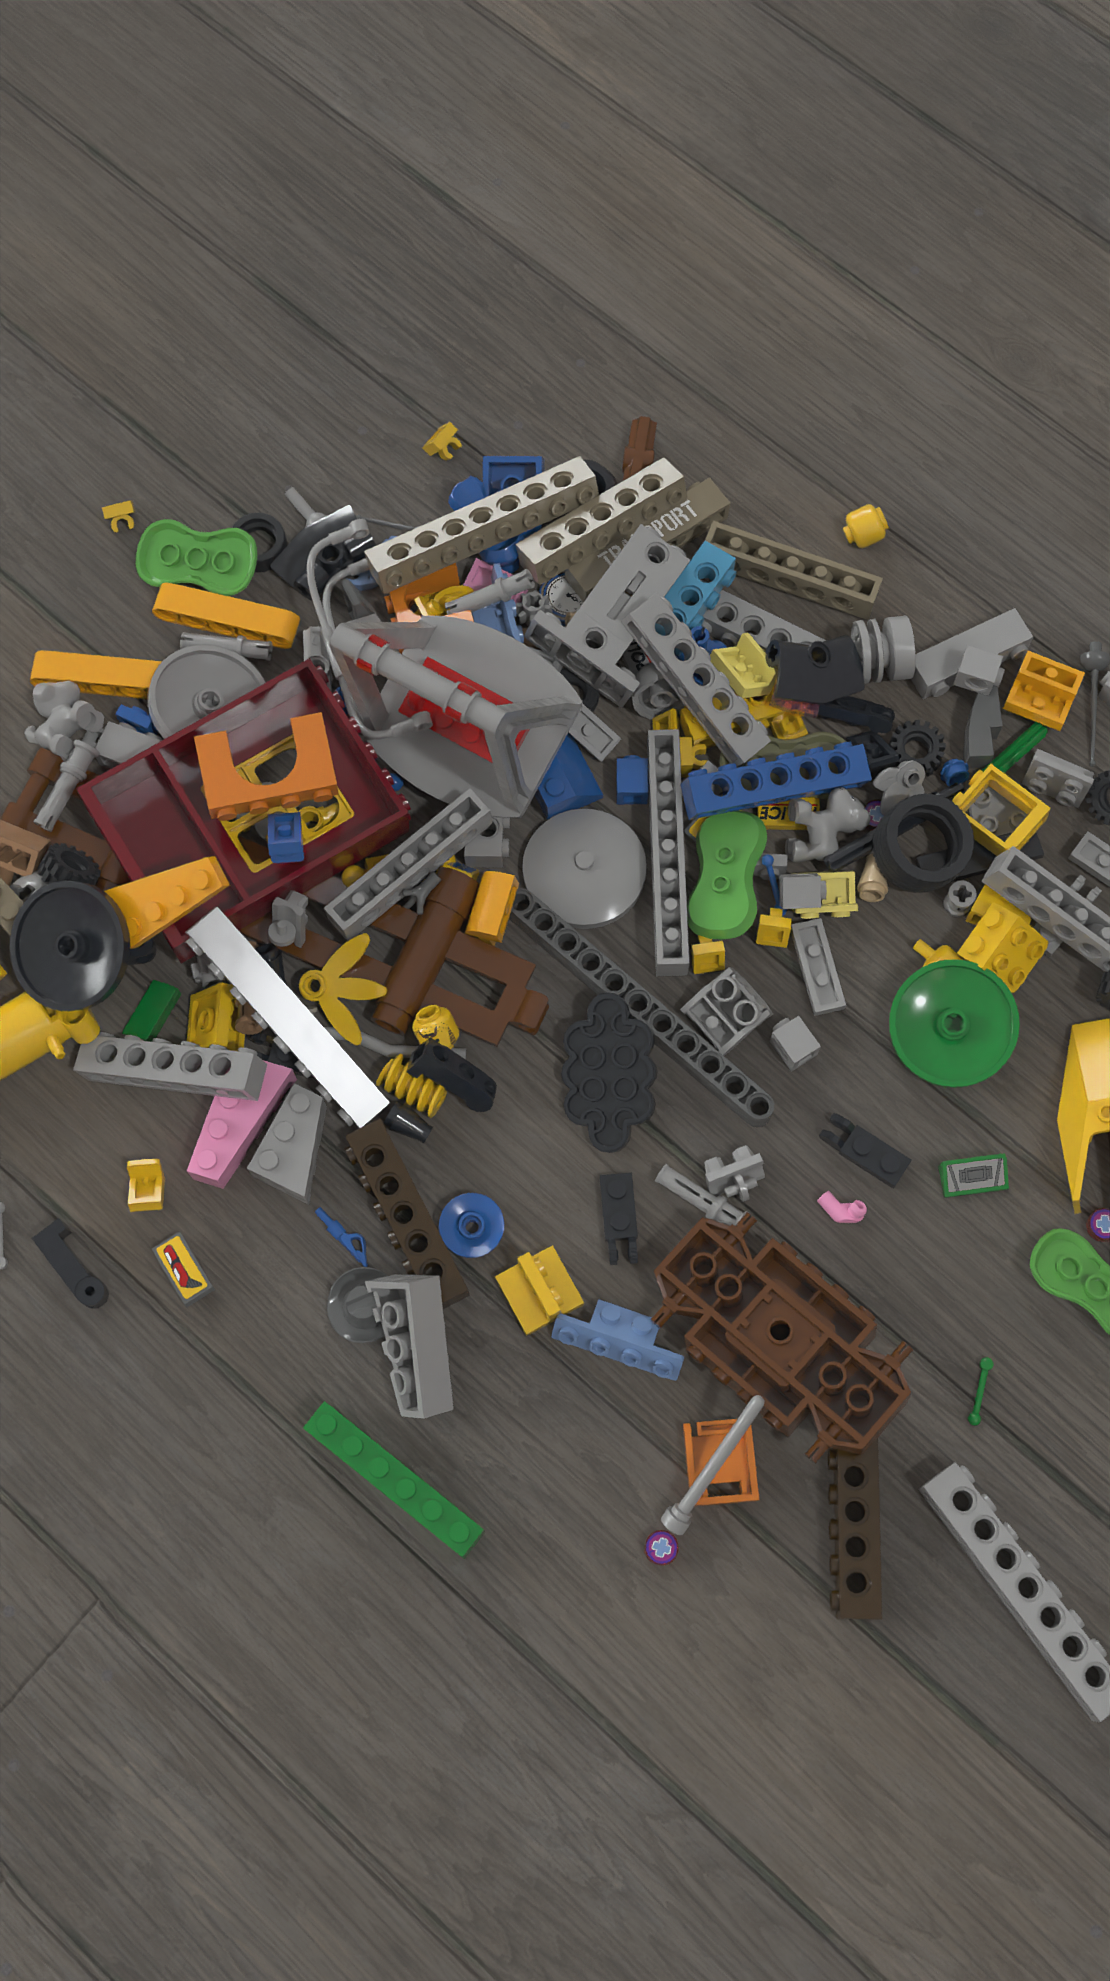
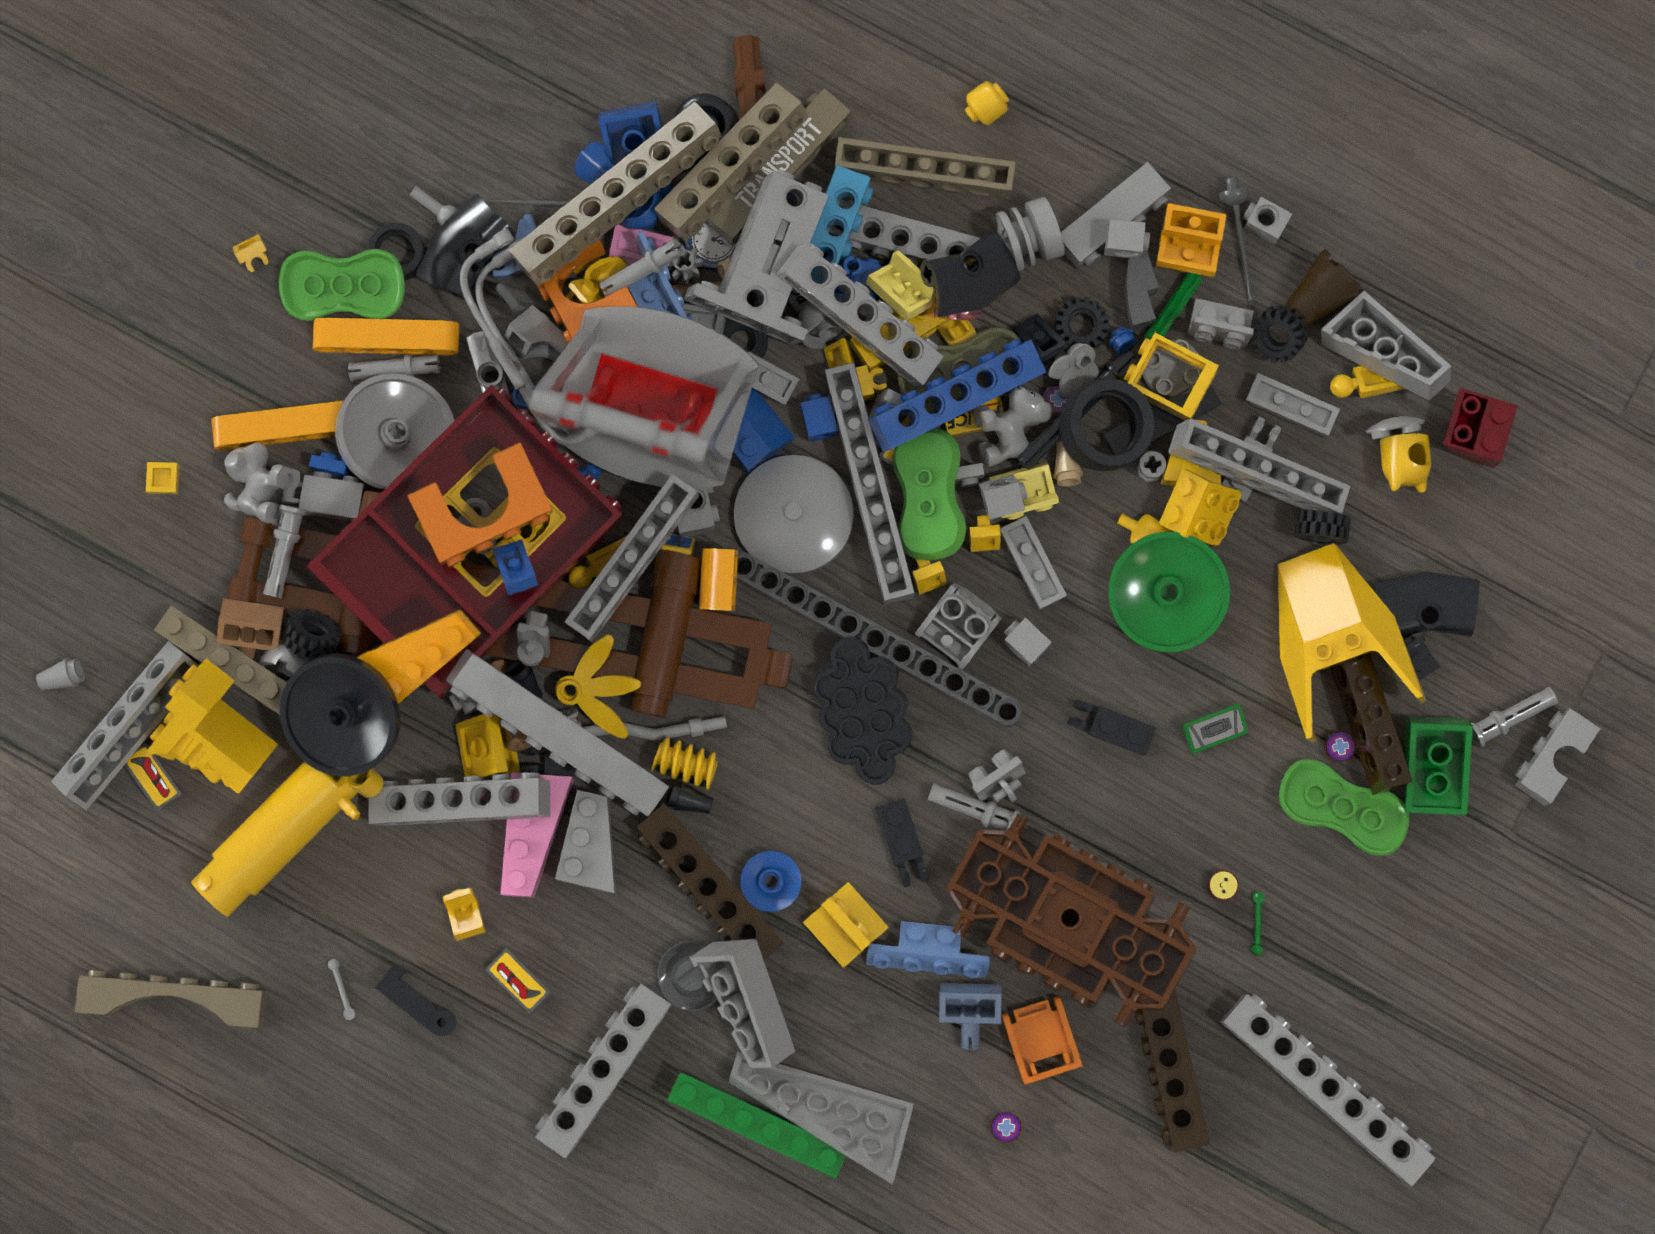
camera: 15 degrees left, 10 degrees up
(152, 1011) = (422, 748): green slope -> none
(187, 1448) = (565, 1140): none -> light grey brick
(343, 1237) = (657, 918): blue hand -> none
(420, 893) = (649, 581): dark grey bar -> none
(435, 1023) = (695, 709): yellow head -> none
(441, 439) = (548, 101): yellow tile -> none
(454, 1074) = (720, 746): black leg -> none
(493, 1496) = (846, 1117): none -> light grey wing
(652, 1406) = (970, 1006): none -> sand blue brick
(678, 1516) = (1015, 1098): light grey piece -> none
(768, 860) = (965, 474): blue hinge -> none
(842, 1212) = (1102, 790): bright pink arm -> none
(859, 712) = (1024, 300): black hinge -> none
(950, 1341) = (1223, 885): none -> light yellow tile

